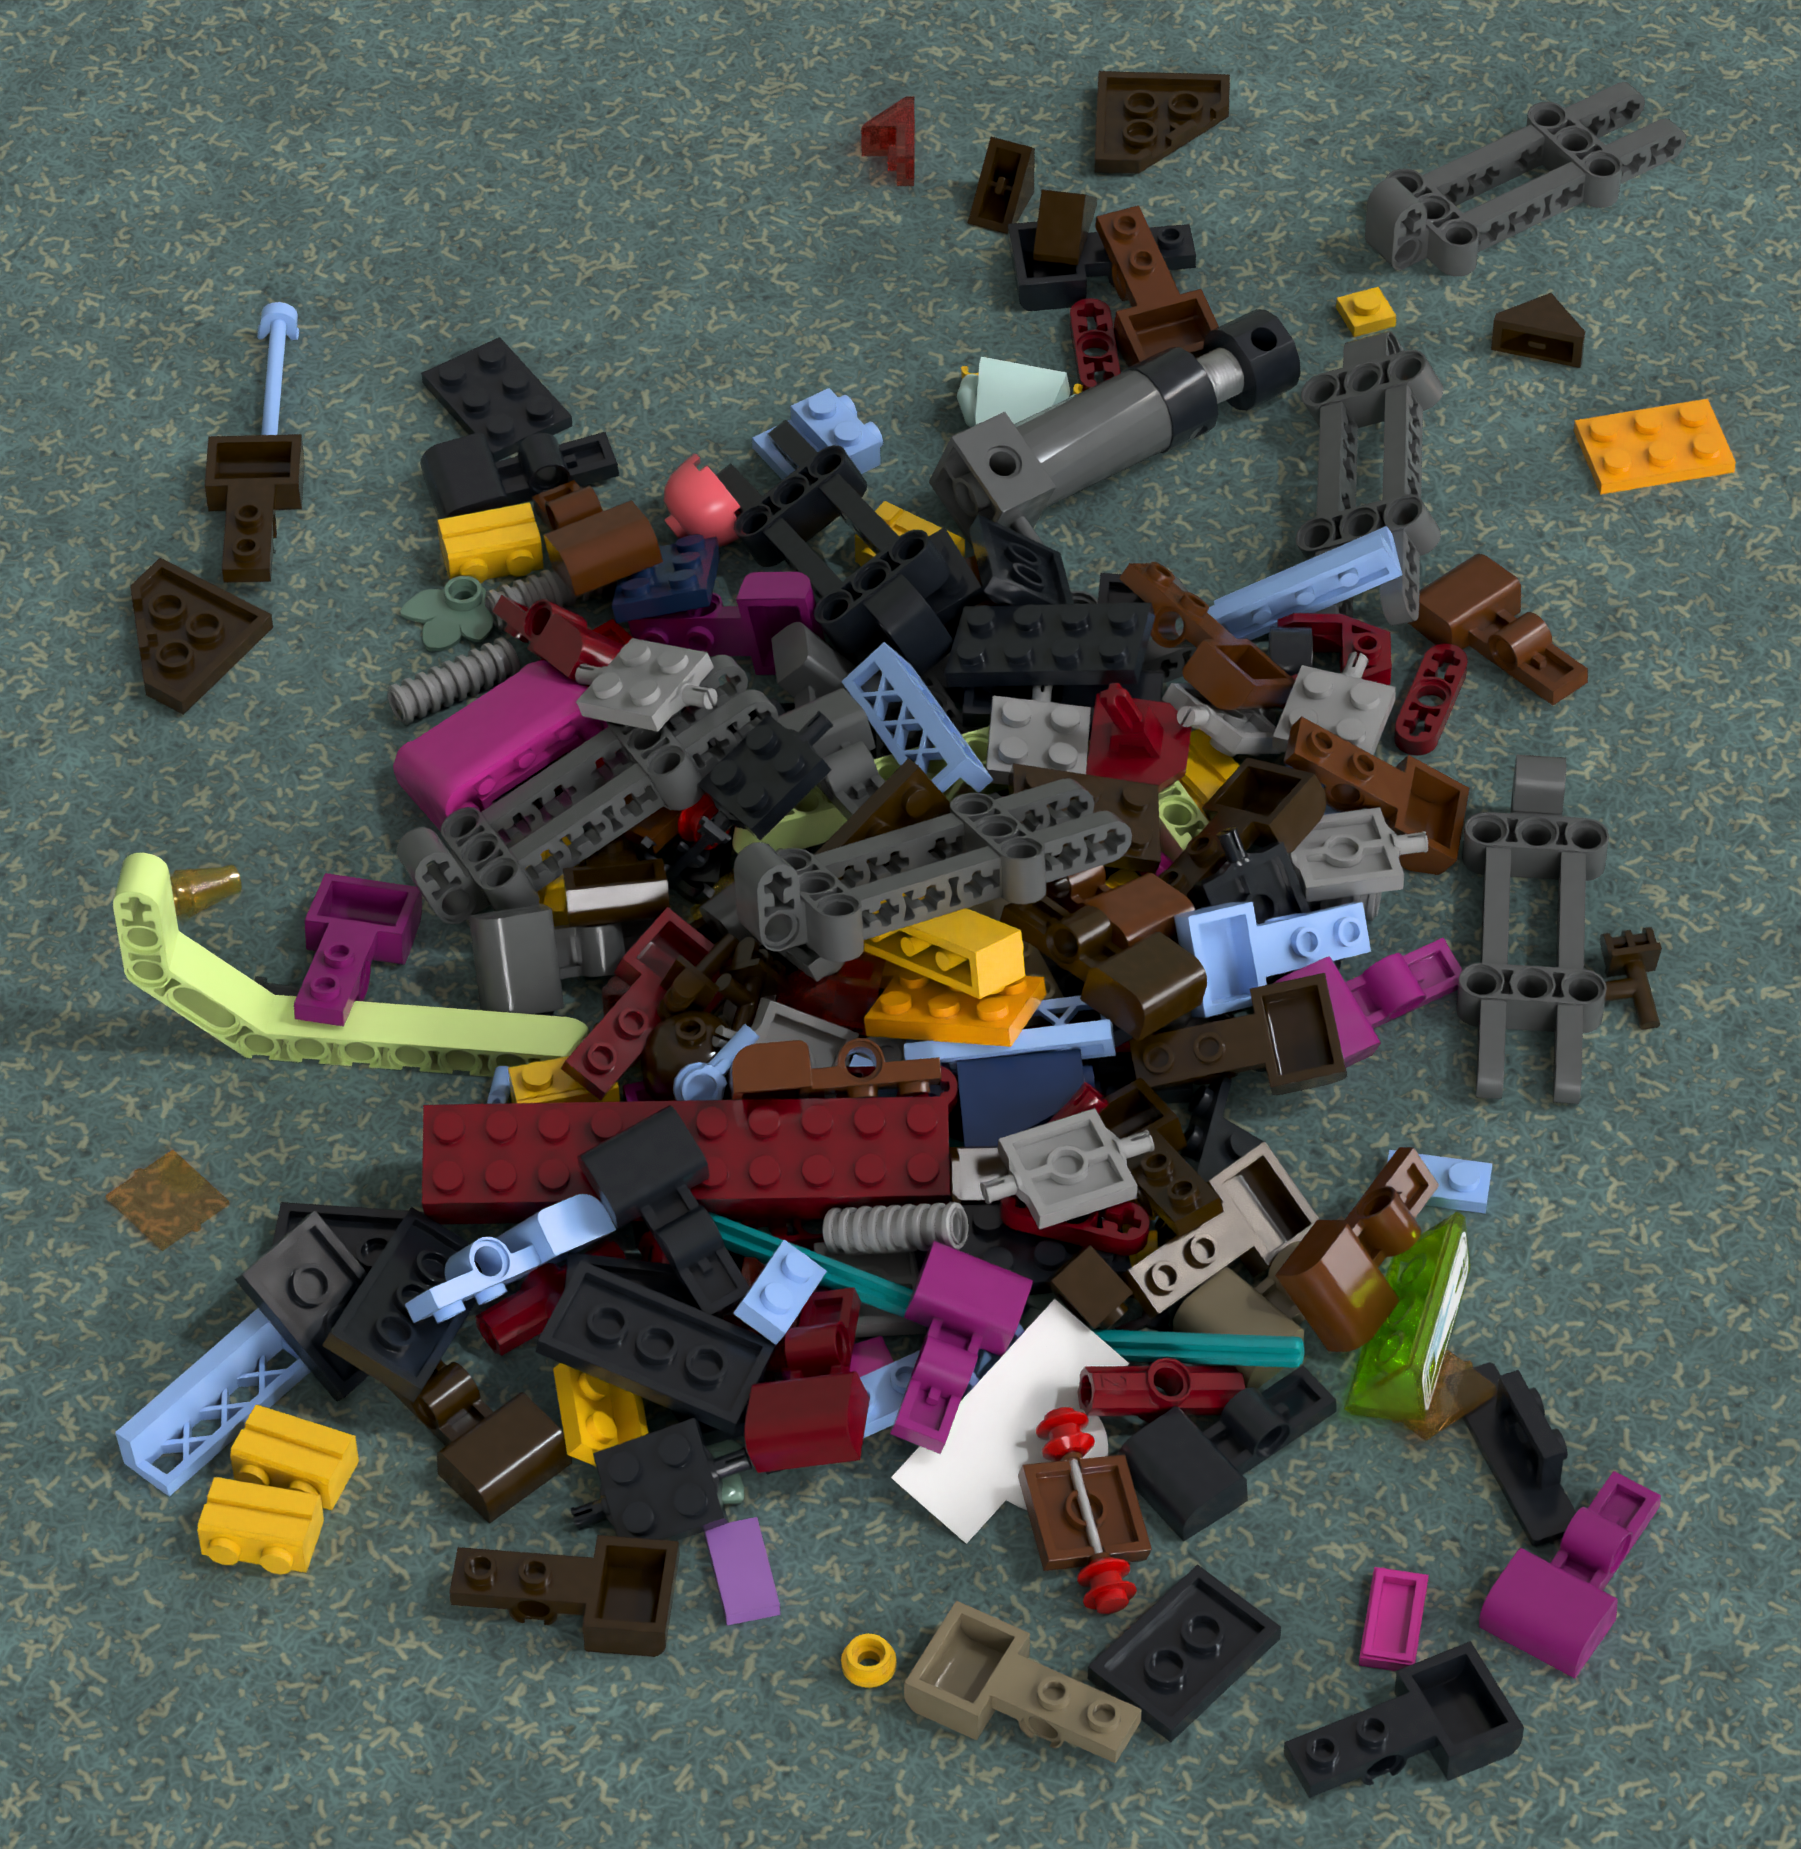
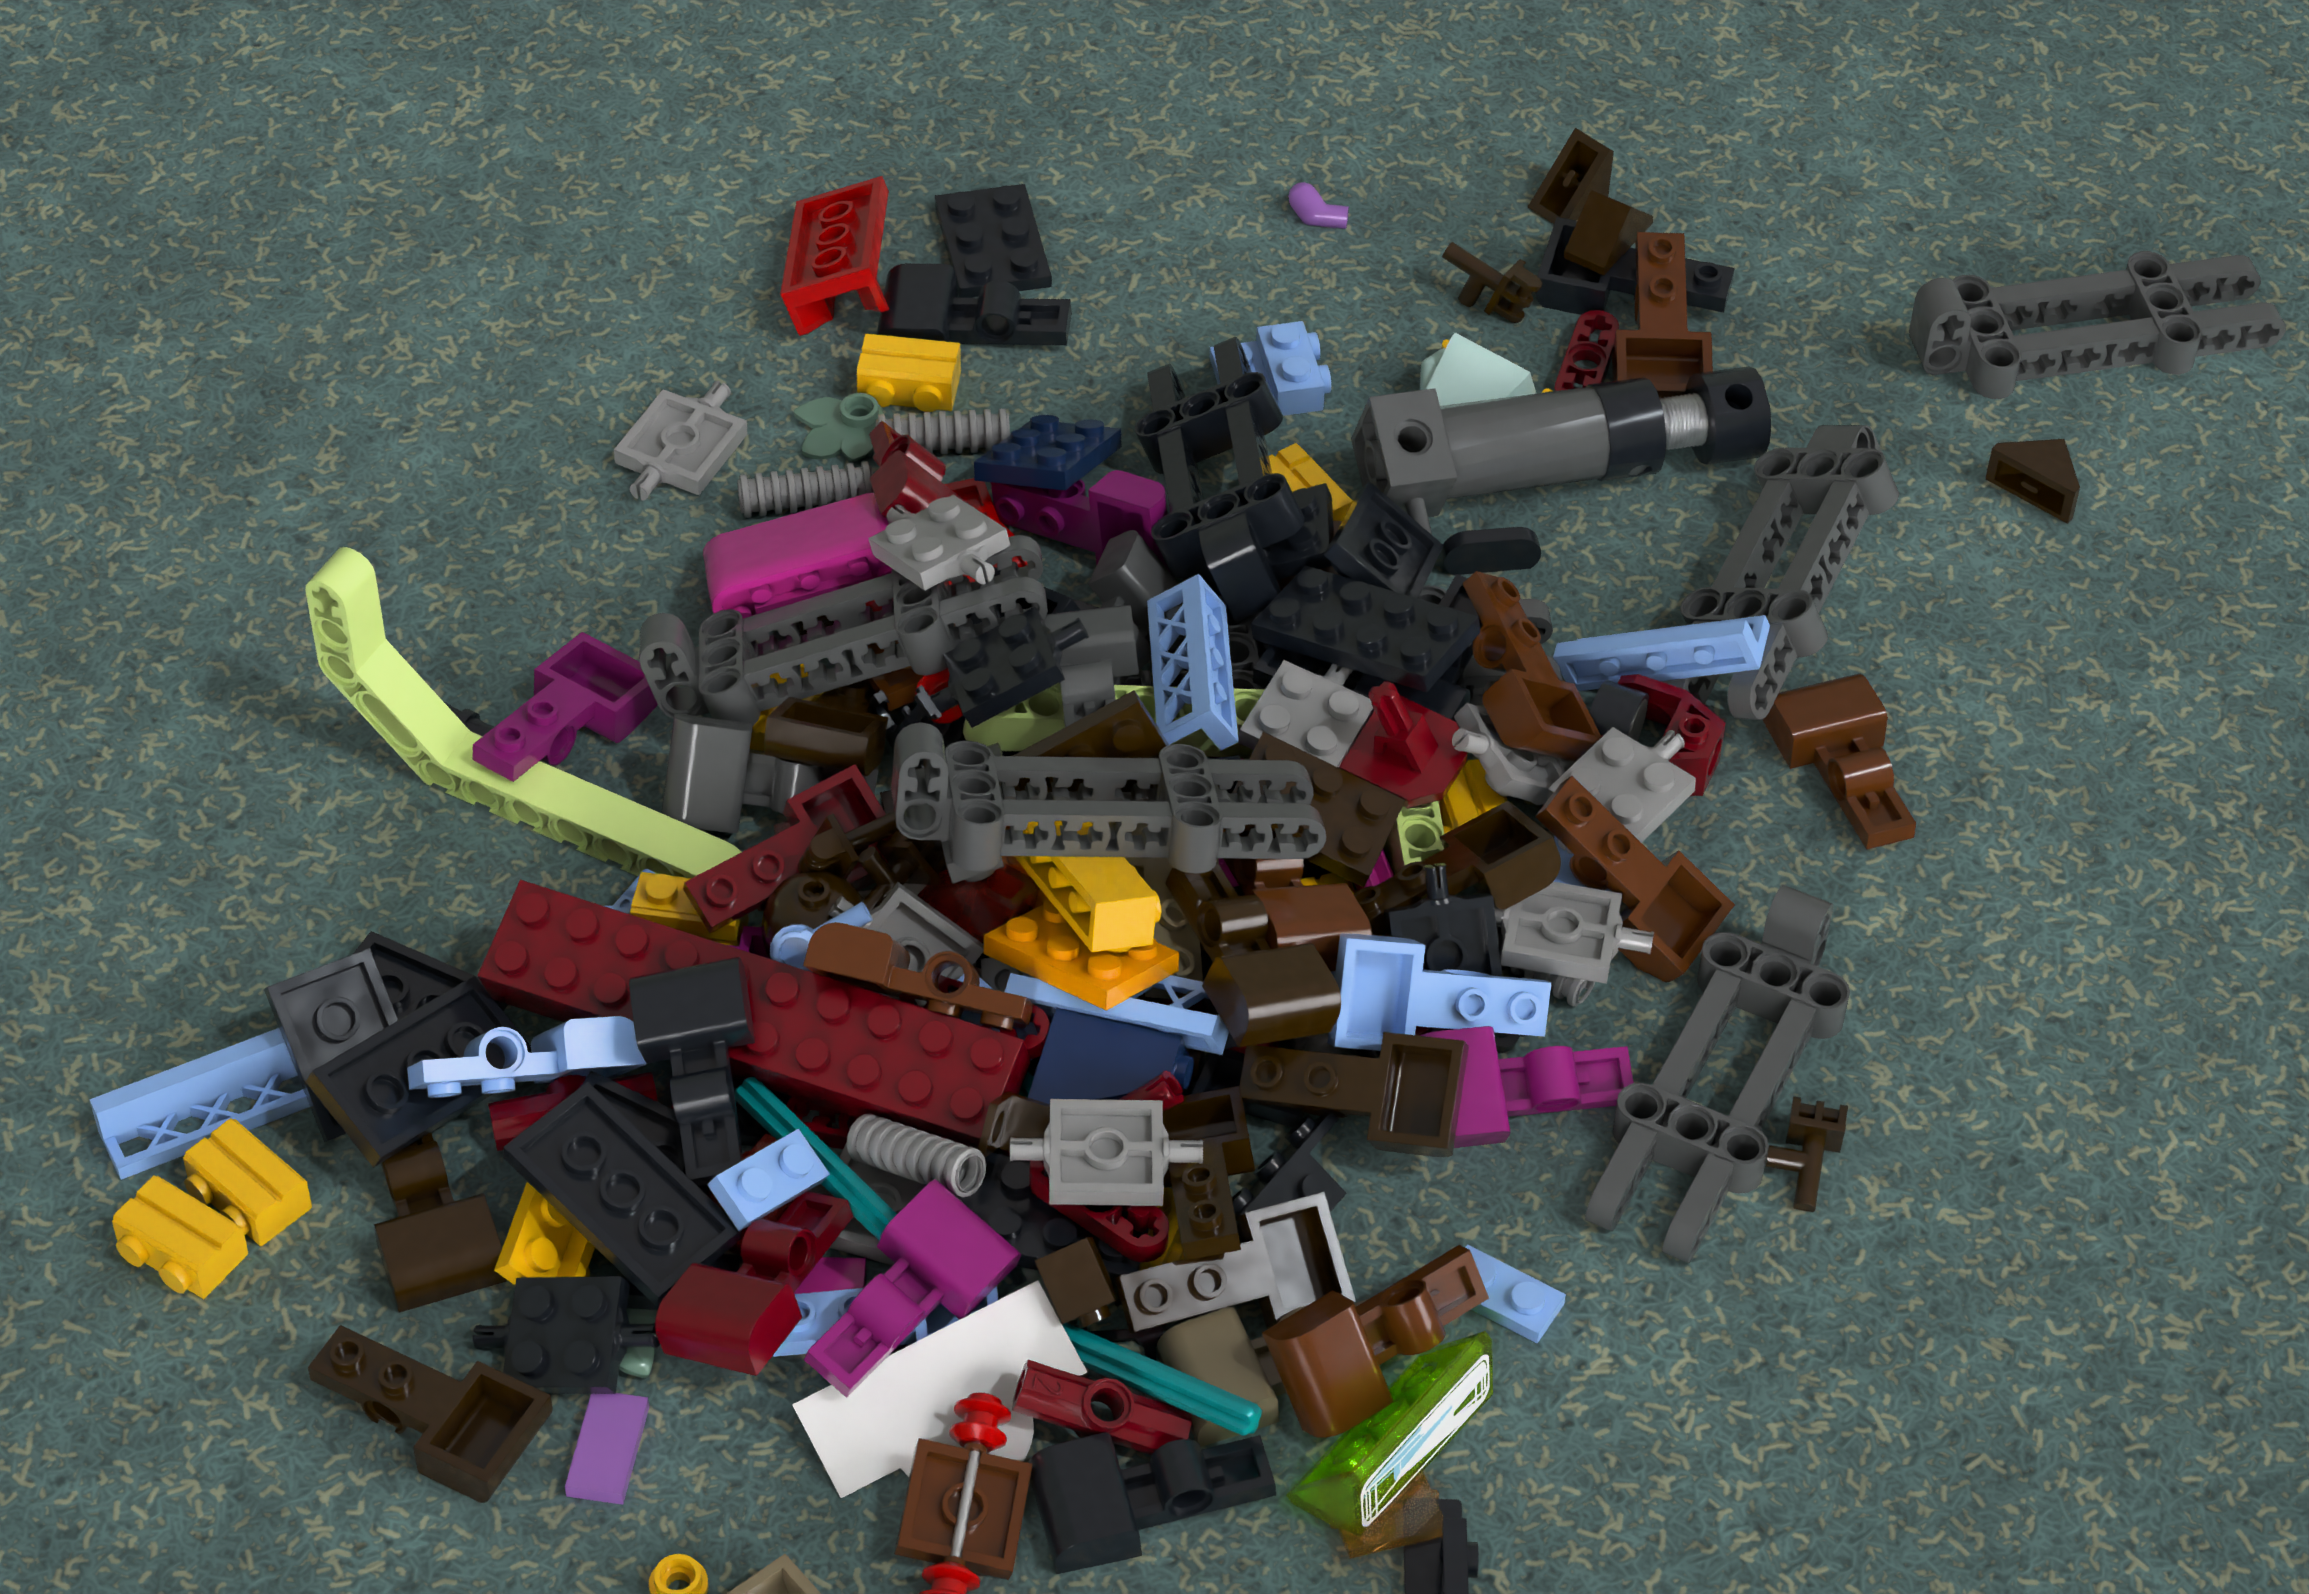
camera: 20 degrees right, 0 degrees up
(167, 1200) = (278, 894): clear orange piece -> none
(190, 633) = (590, 371): dark brown plate -> none
(203, 887) = (468, 610): clear yellow cone -> none
(250, 482) = (712, 248): dark brown plate -> none
(278, 320) = (824, 110): light blue piece -> none
(311, 672) = (680, 441): none -> light grey plate
(366, 450) = (834, 251): none -> red plate
(593, 544) = (996, 396): reddish brown plate -> none
(700, 503) = (1118, 391): coral cylinder -> none
(777, 282) = (1313, 210): none -> medium lavender arm
(893, 136) = (1494, 107): clear red slope -> none
(967, 297) = (1503, 285): none -> dark brown arm
(1102, 544) = (1491, 550): none -> black tile
(1153, 115) = (1757, 156): dark brown plate -> none
(1366, 311) = (1875, 404): yellow plate -> none
(1428, 683) = (1746, 786): dark red beam -> none
(1654, 446) = (2103, 623): light orange plate -> none

